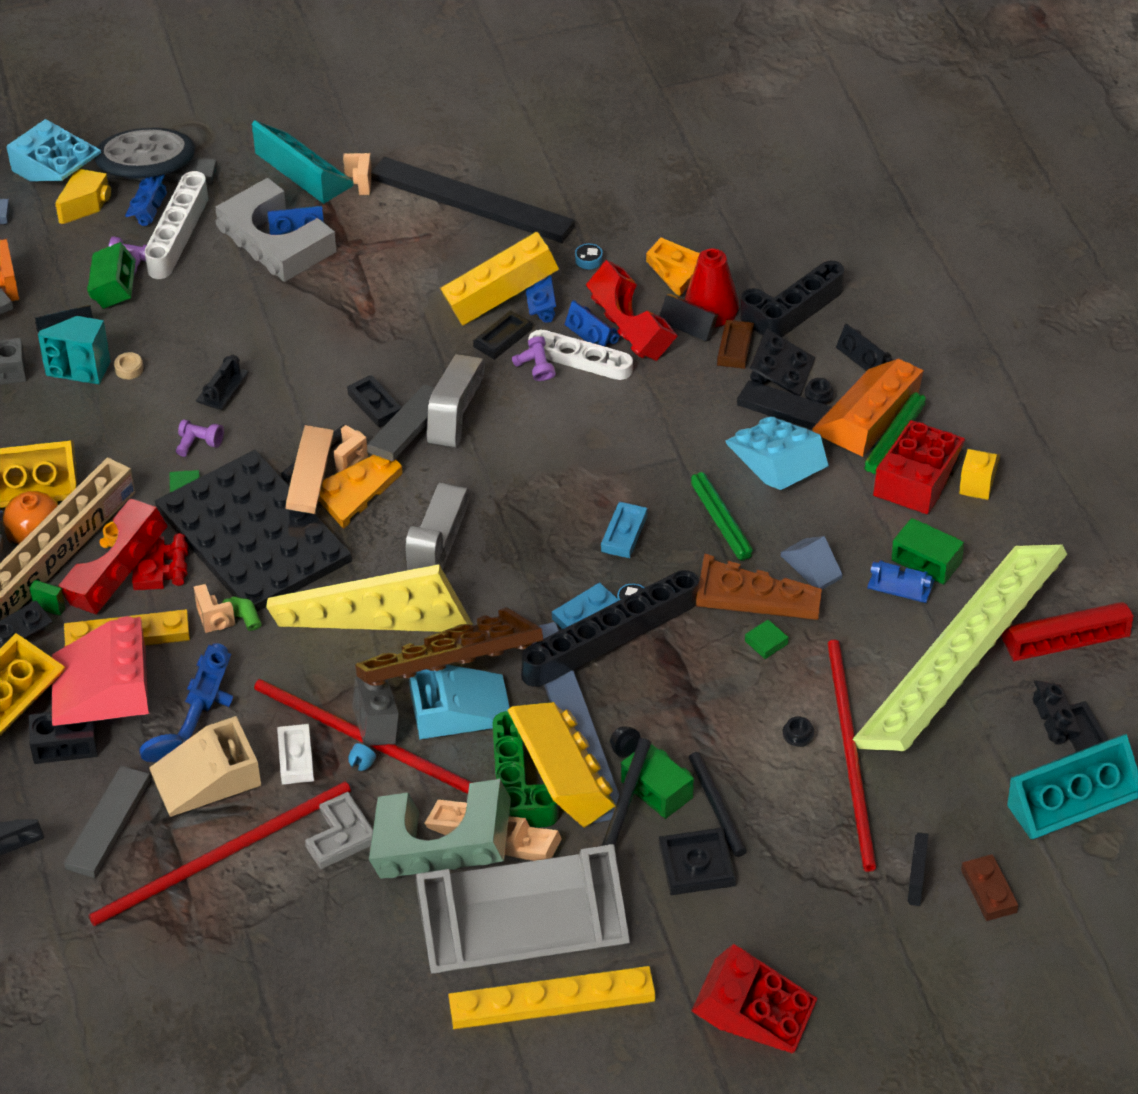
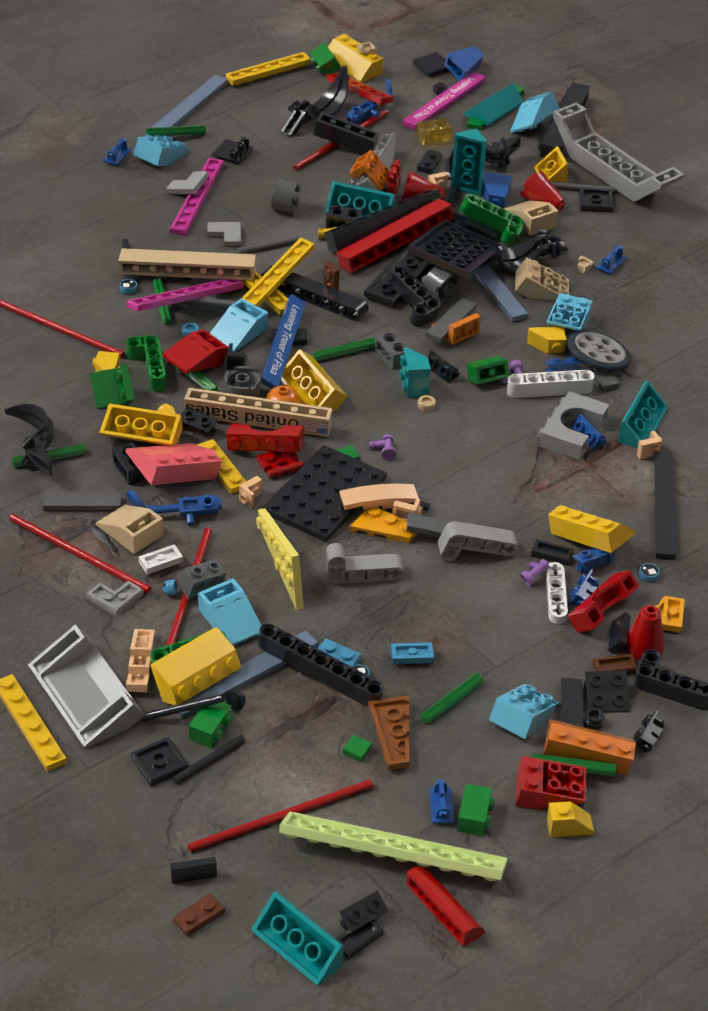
camera: 65 degrees right, 5 degrees down
(48, 597) = (226, 424): green tile -> none
(223, 383) = (424, 443): black hinge -> none
(245, 609) = (260, 504): bright green arm -> none
(374, 400) = (457, 509): black plate -> none
(453, 645) = (263, 596): reddish brown wing -> none
(474, 842) = (119, 644): sand green arch -> none
(754, 1001) = (56, 814): red slope -> none
(798, 731) = (284, 783): black plate -> none
(813, 561) = (434, 754): sand blue slope -> none

